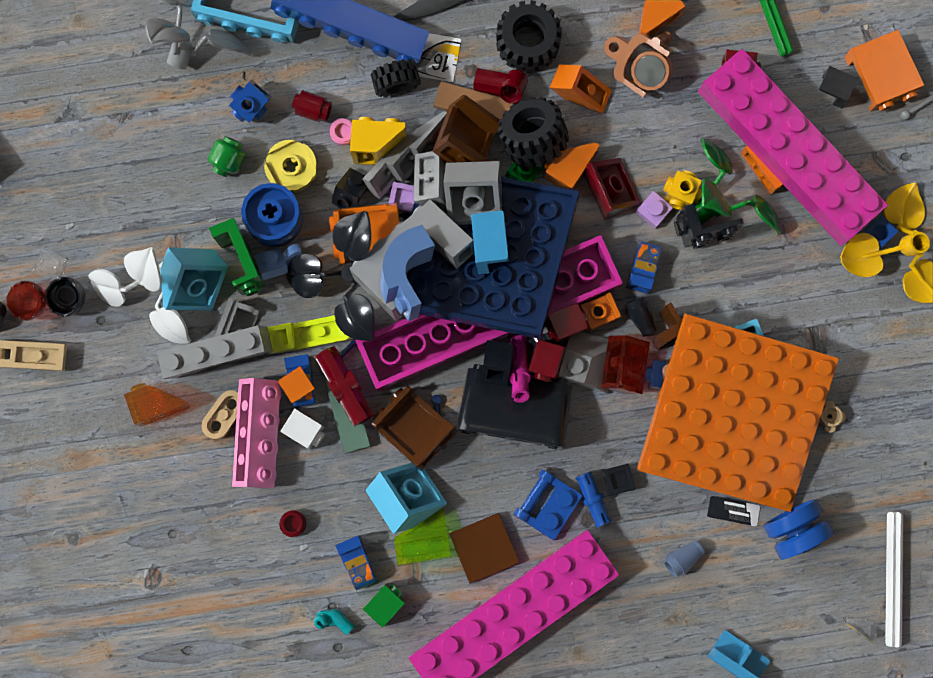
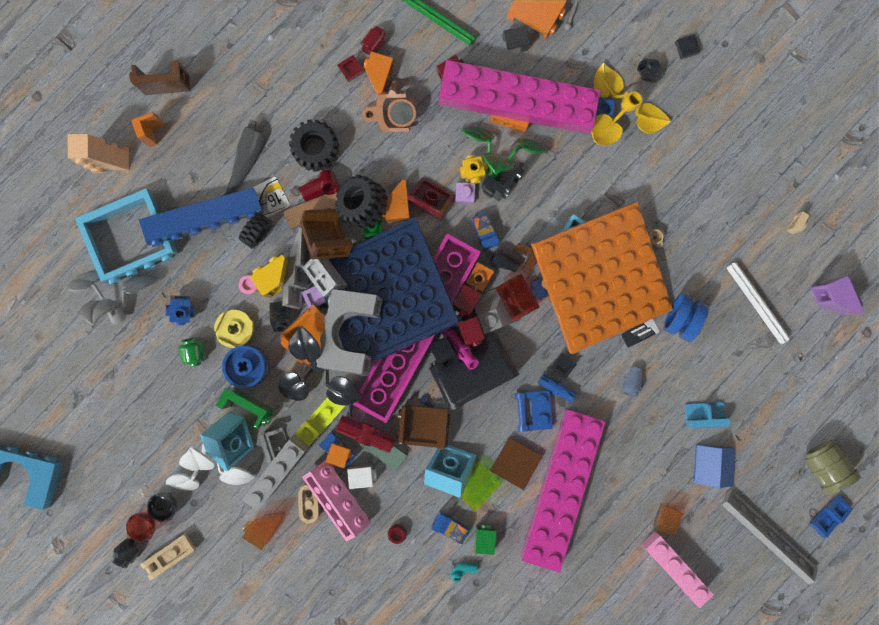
camera: 40 degrees left, 5 degrees up
(274, 262) = (269, 391): medium blue plate -> none
(312, 106) = (218, 284): dark red brick -> none
(403, 254) = (342, 335): medium blue arch -> none
(472, 189) = (354, 265): light grey slope -> none
(489, 239) = (385, 287): dark azure panel -> none
(580, 87) = (368, 152): orange slope -> none

